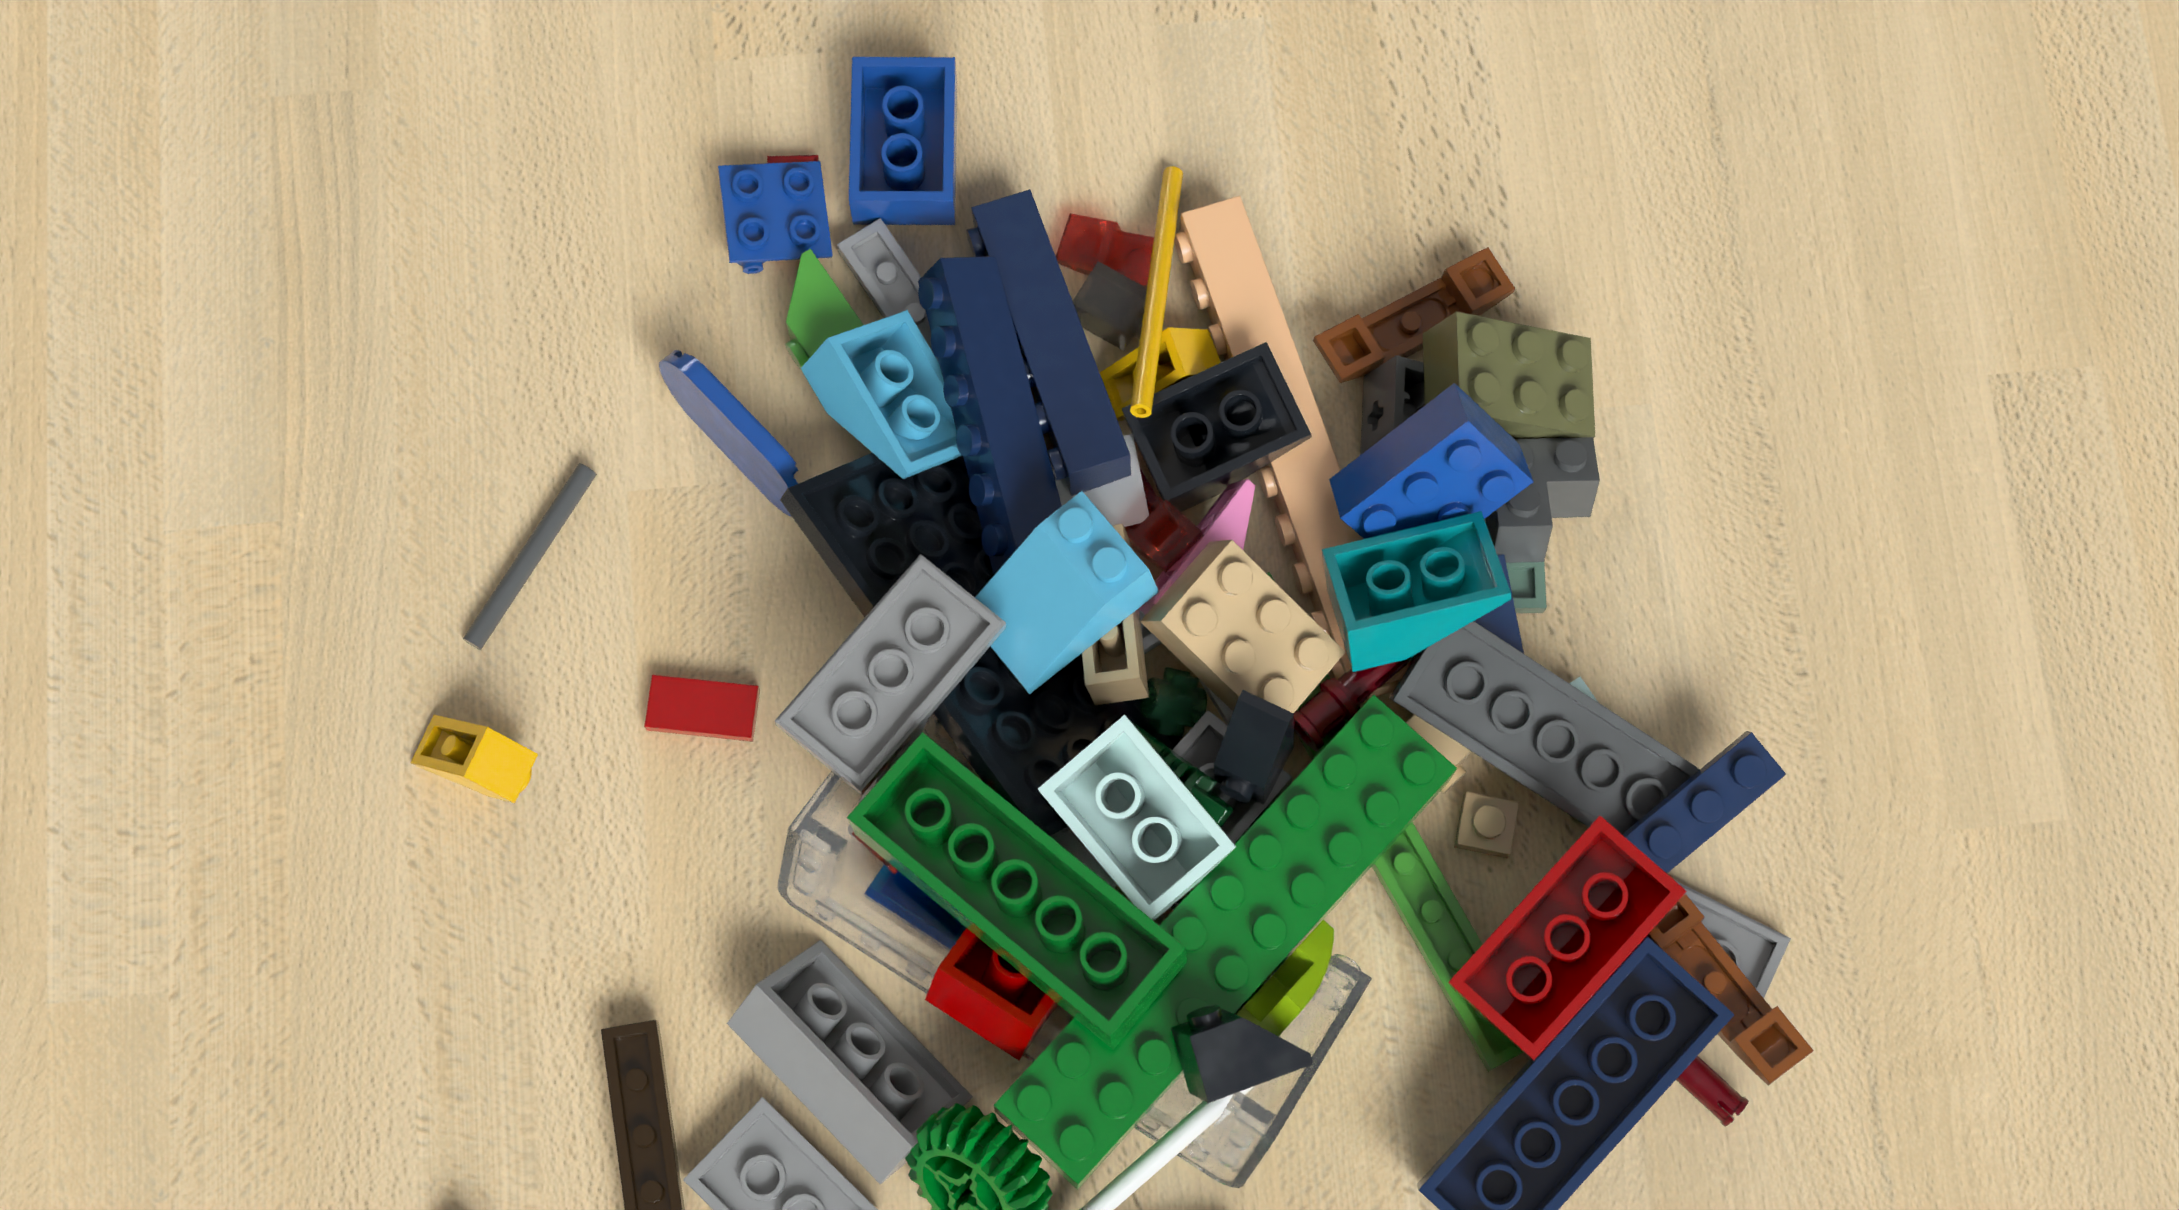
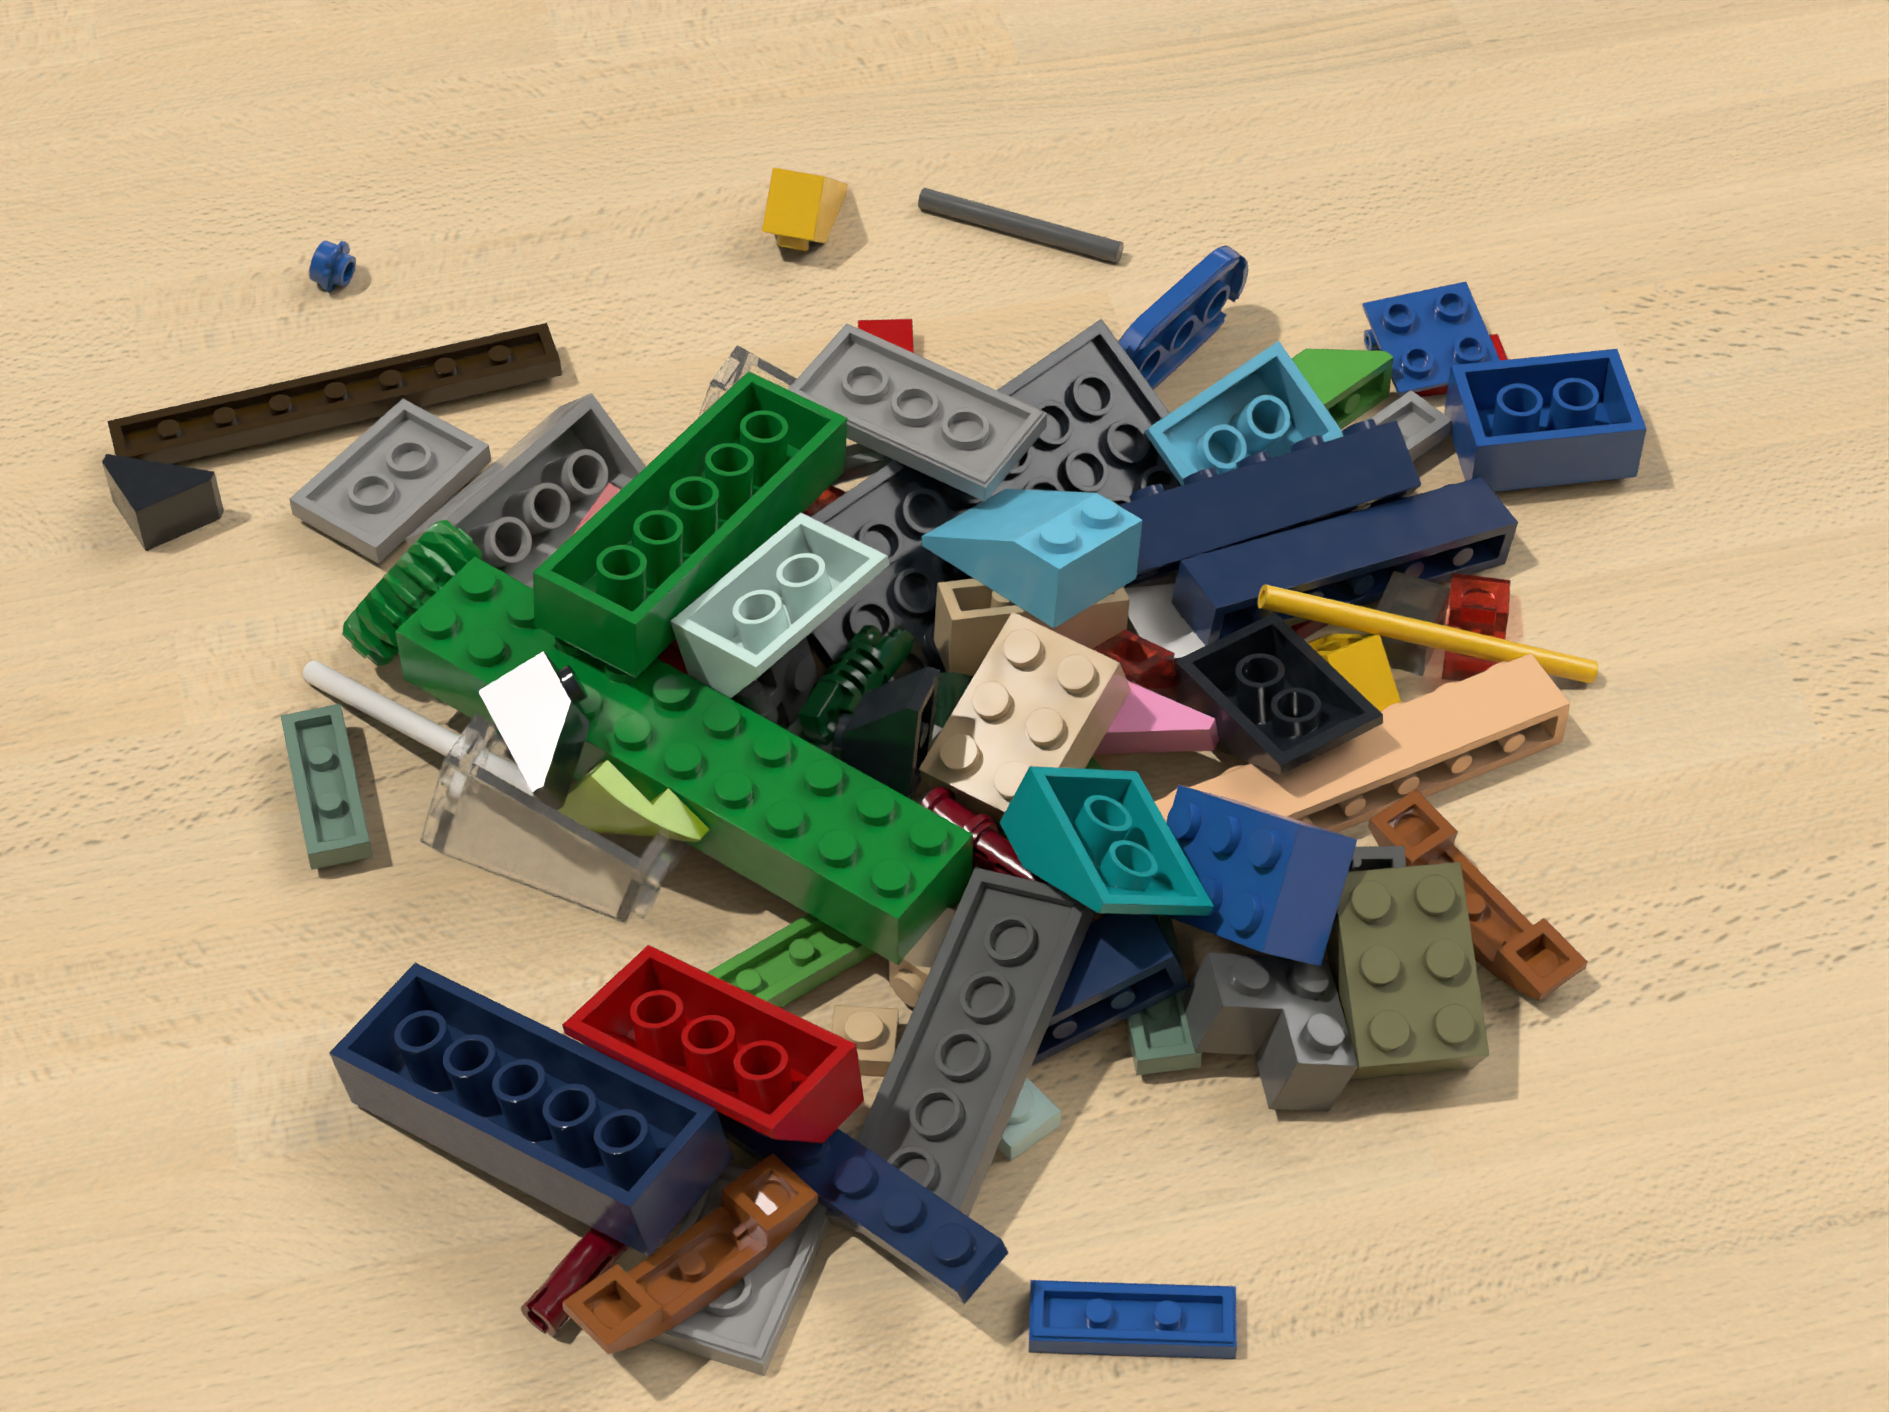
camera: 85 degrees right, 25 degrees down
(1766, 654) = (1133, 1319): none -> blue tile

